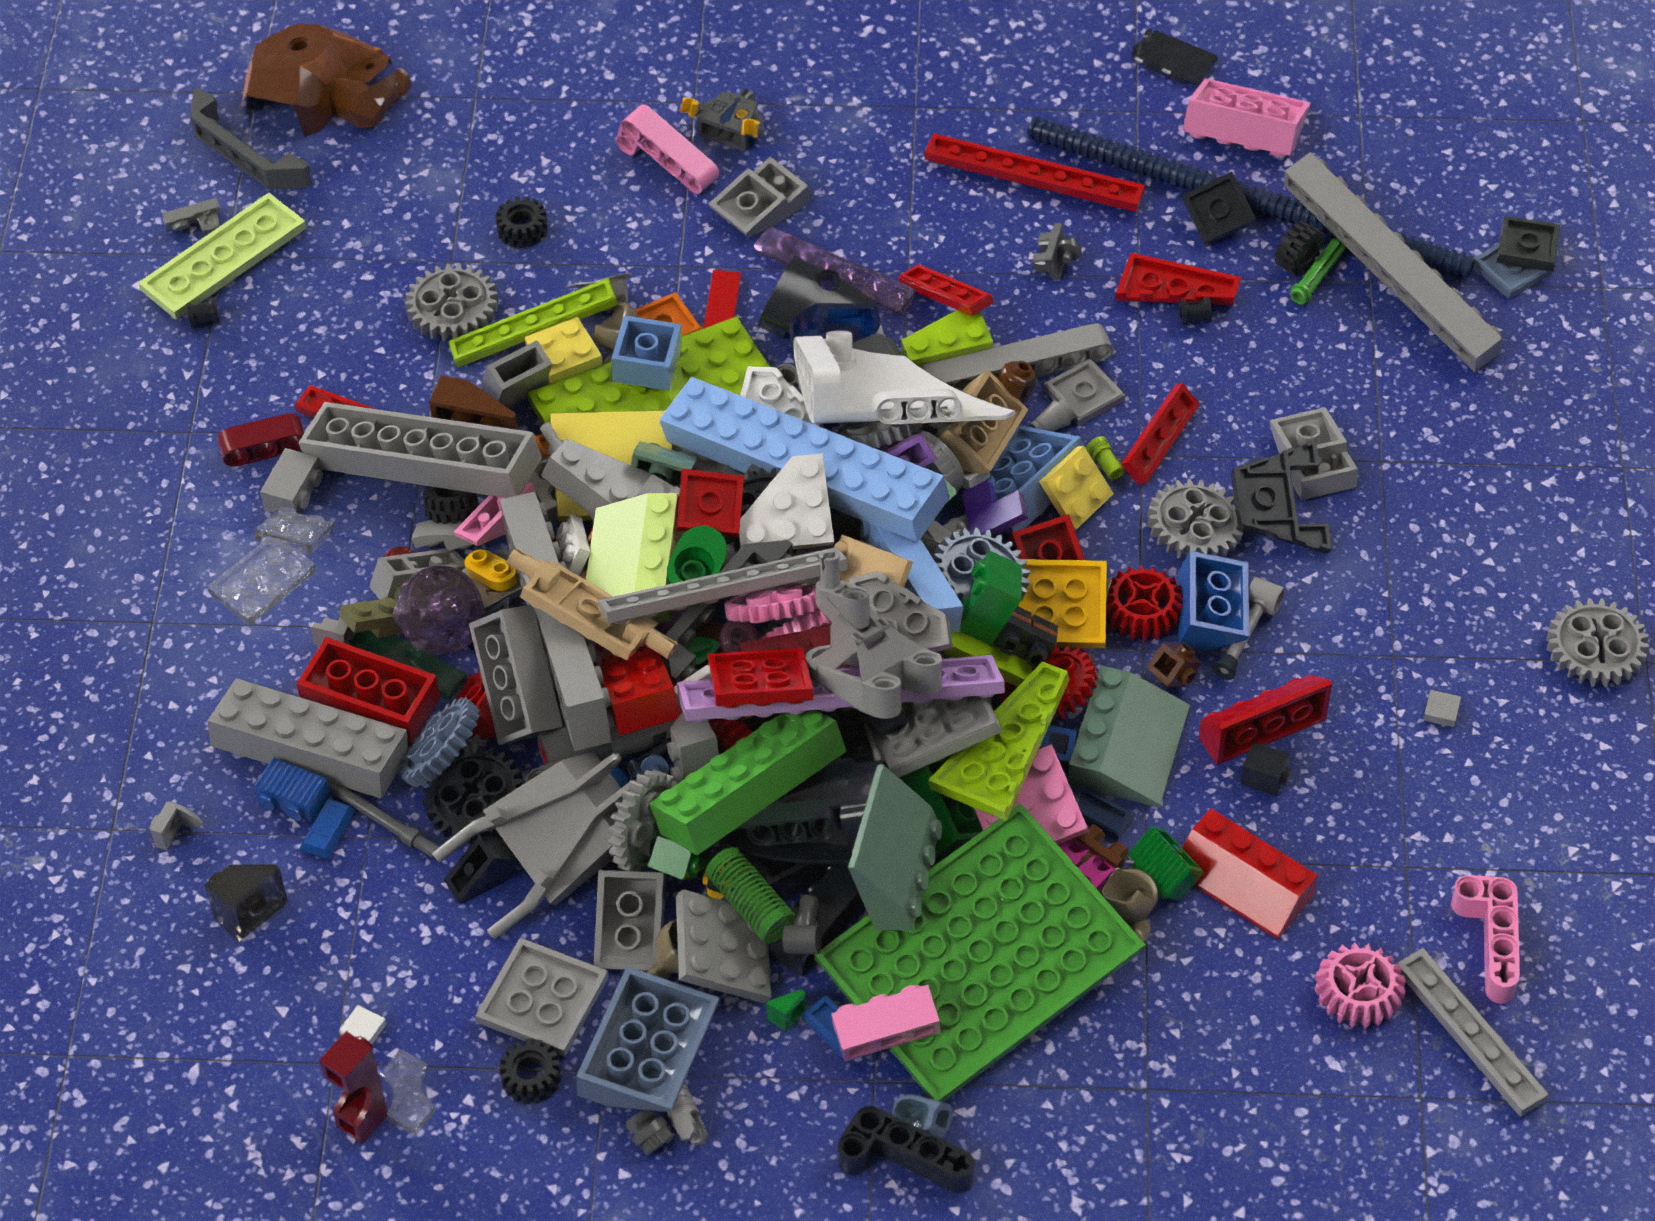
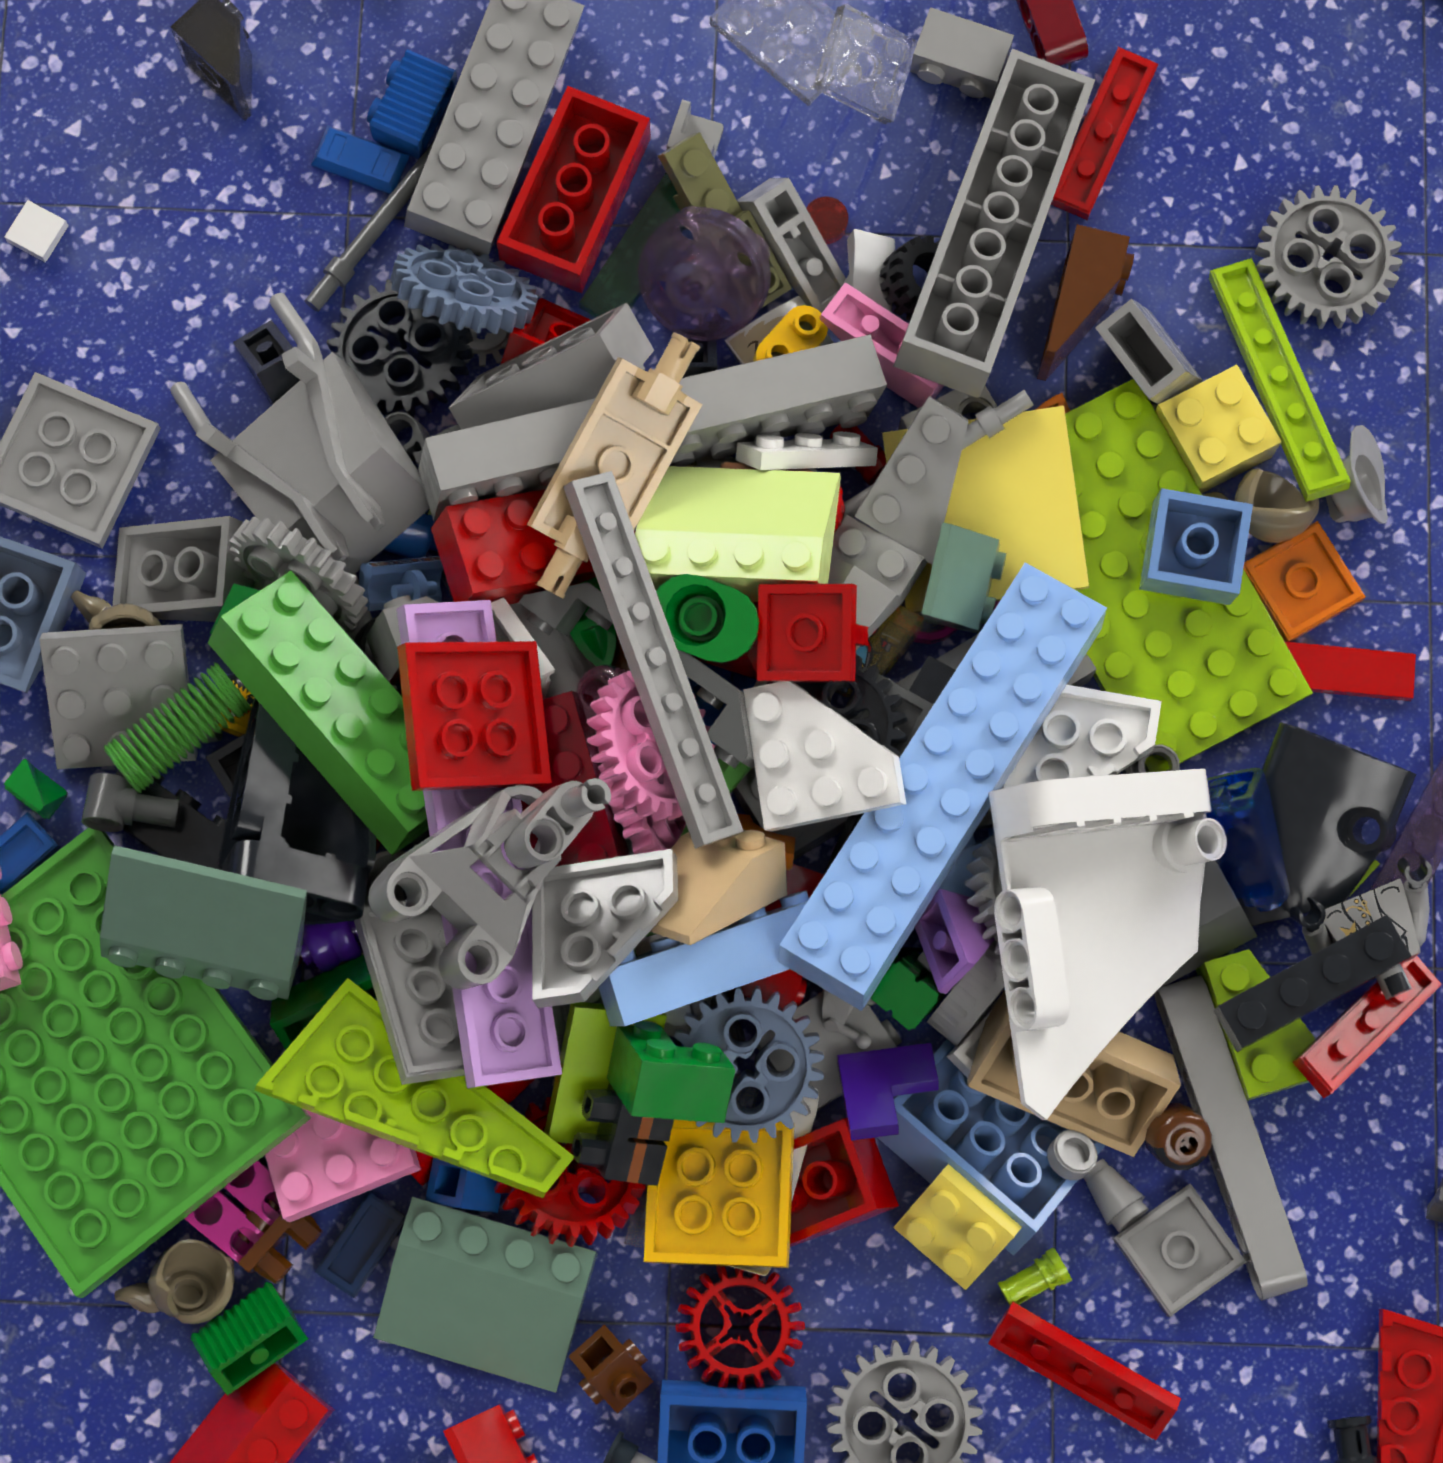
camera: 85 degrees right, 25 degrees up
(888, 279) = (1405, 906): none -> light grey torso
(926, 297) = (1312, 983): none -> black brick
(1029, 431) = (1072, 1155): none -> light grey tile

